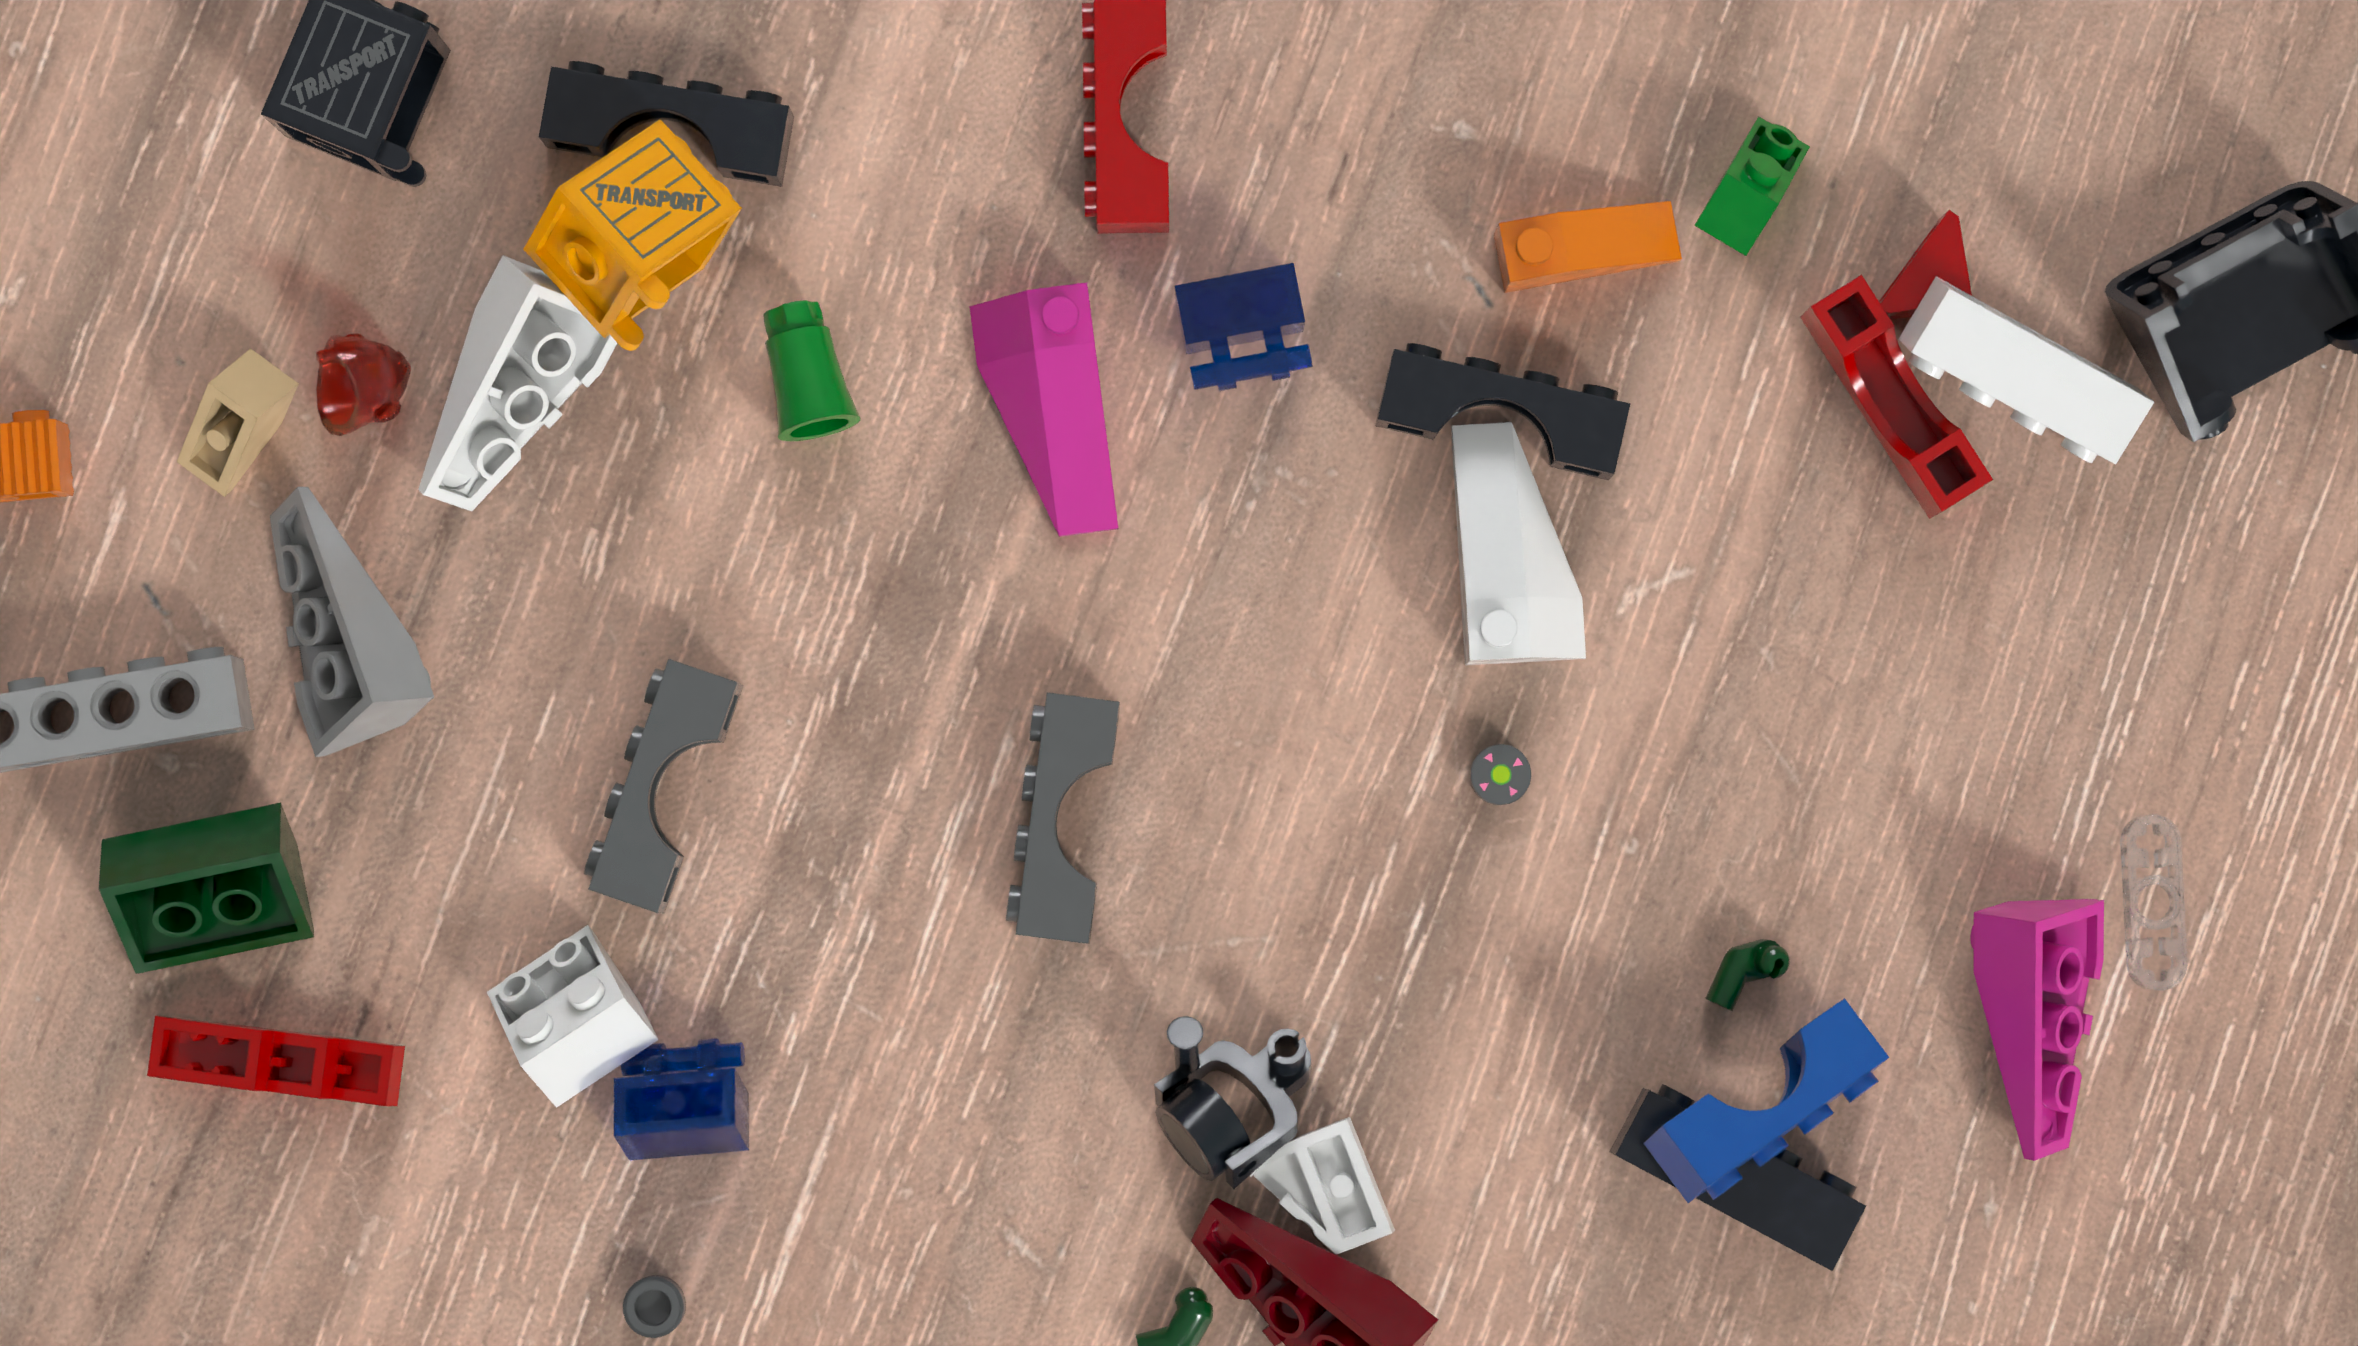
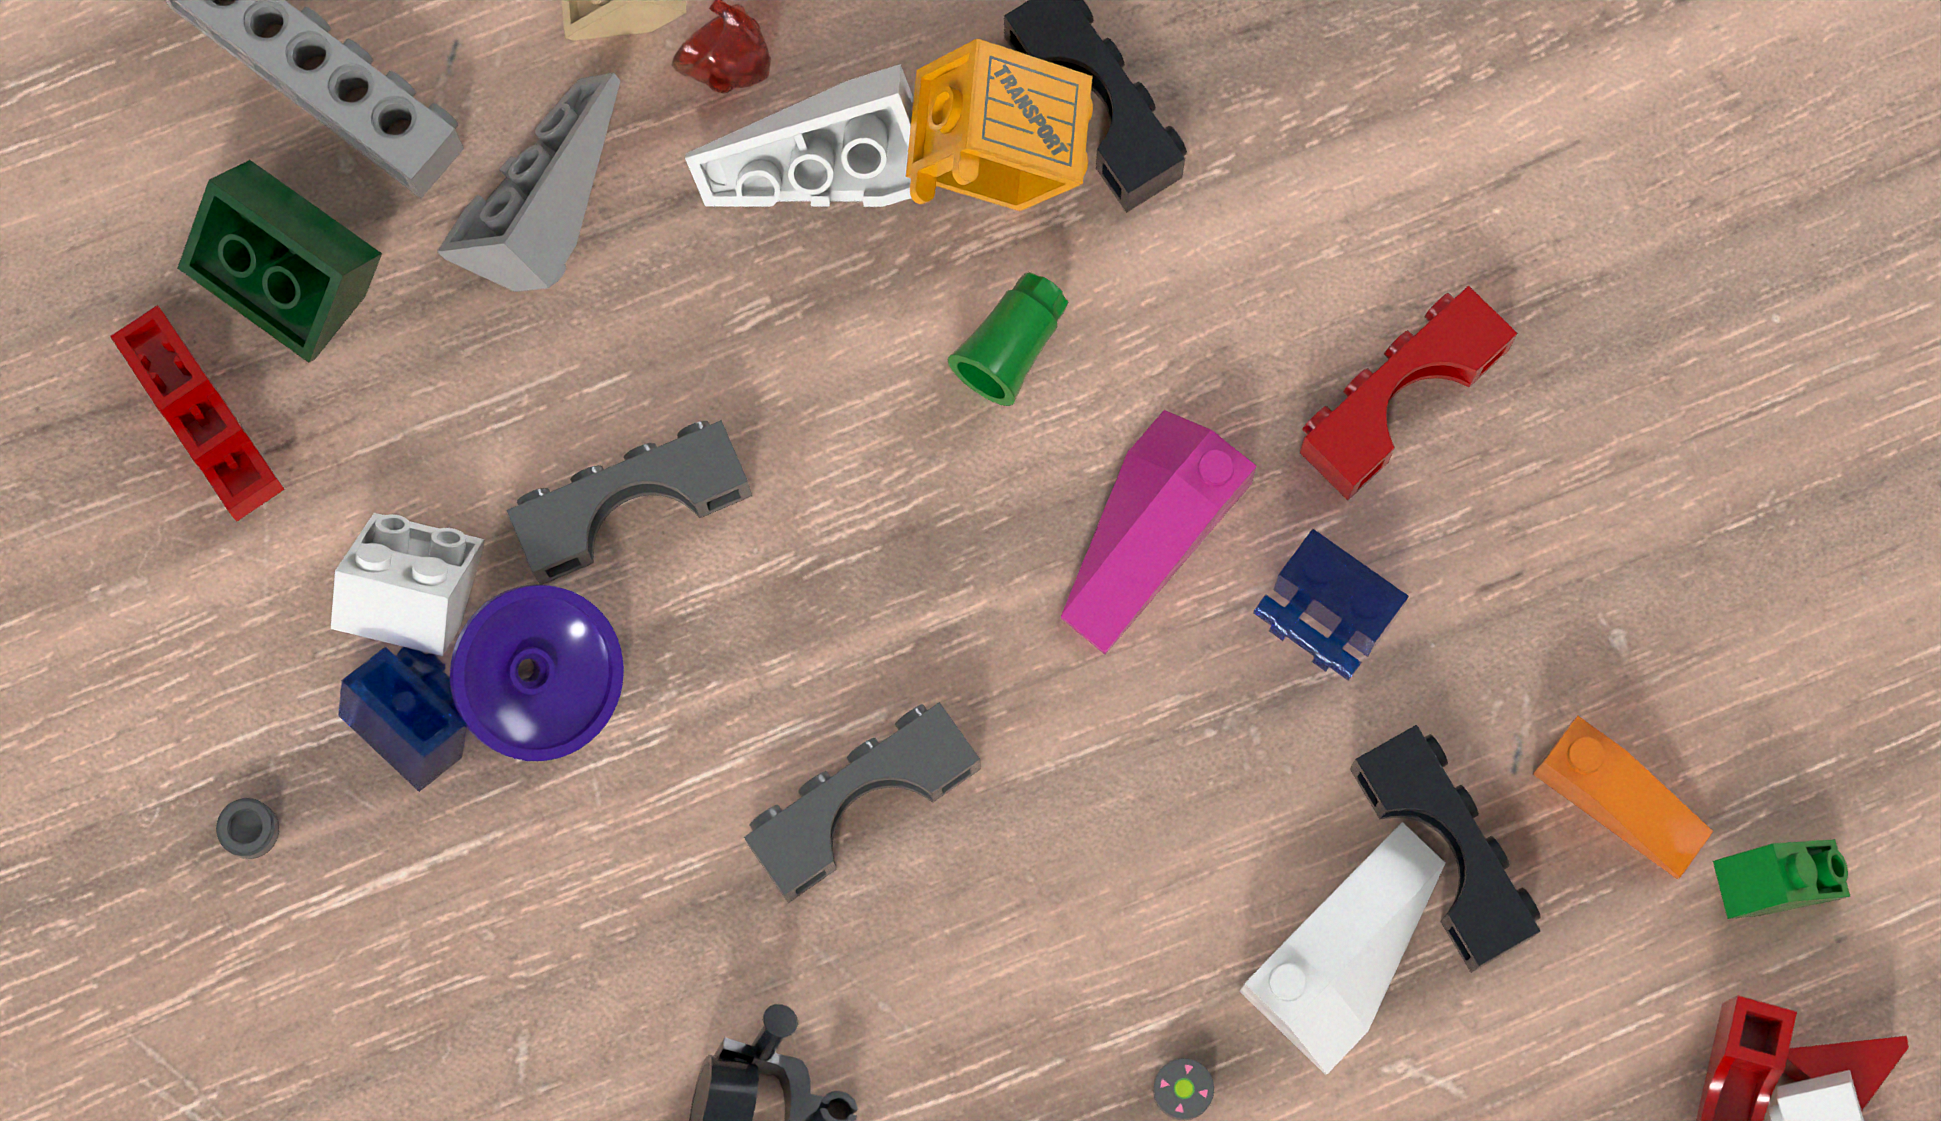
camera: 50 degrees right, 10 degrees down
(772, 970) = (572, 681): none -> dark purple dish

